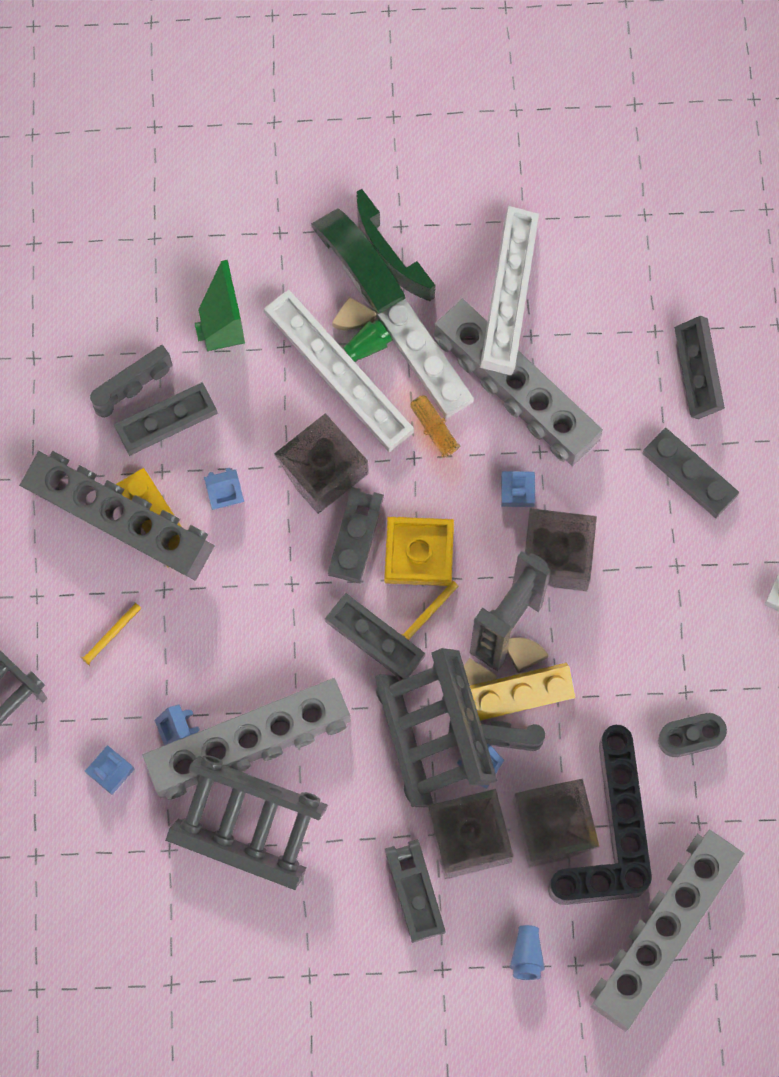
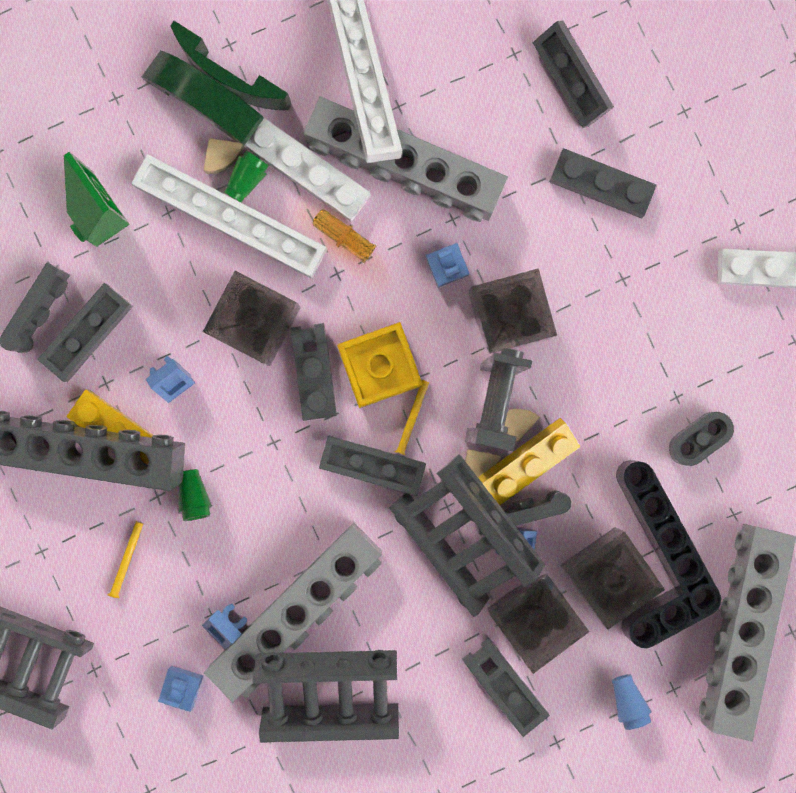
camera: 20 degrees left, 15 degrees up
(198, 601) = (192, 497): none -> green cone

